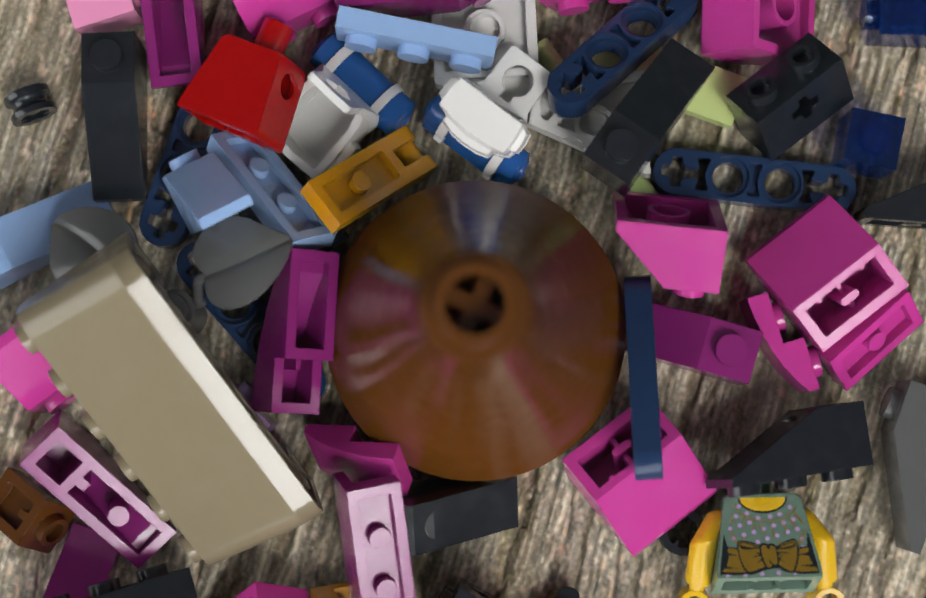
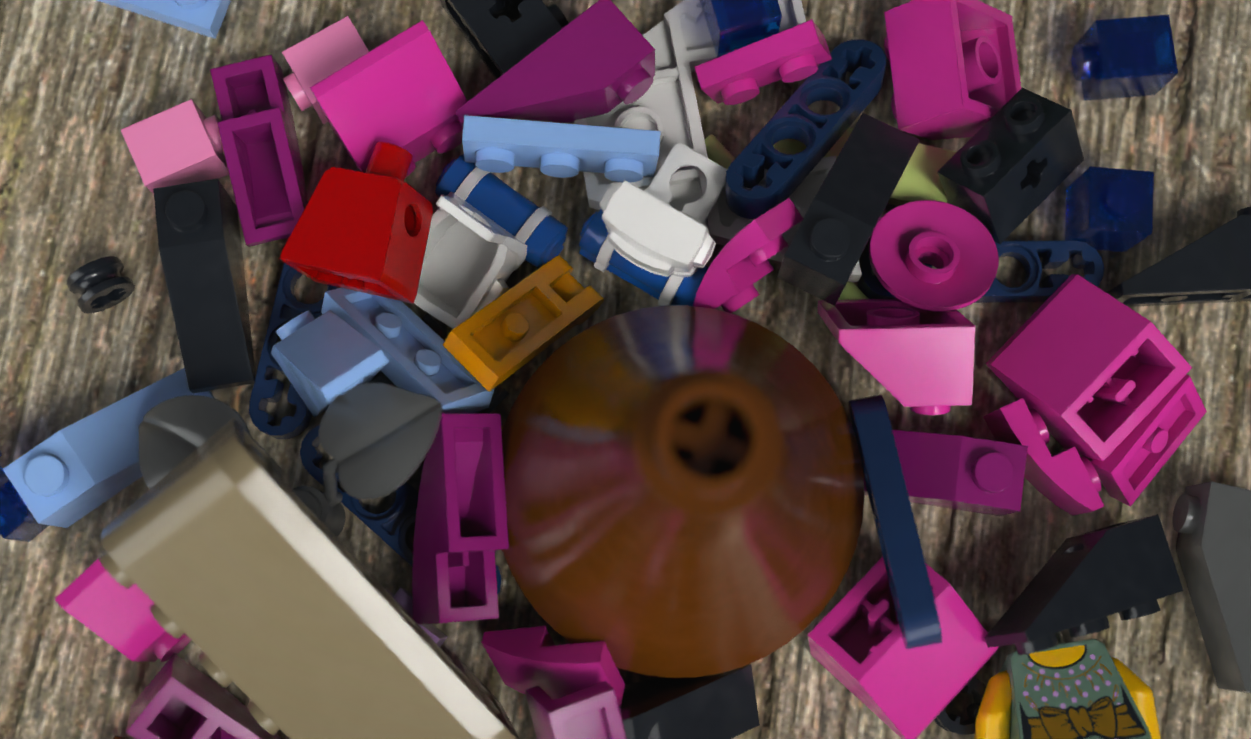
camera: 20 degrees left, 5 degrees down
(555, 151) = (745, 260): none -> dark pink slope
(715, 147) = (938, 236): none -> dark pink dish

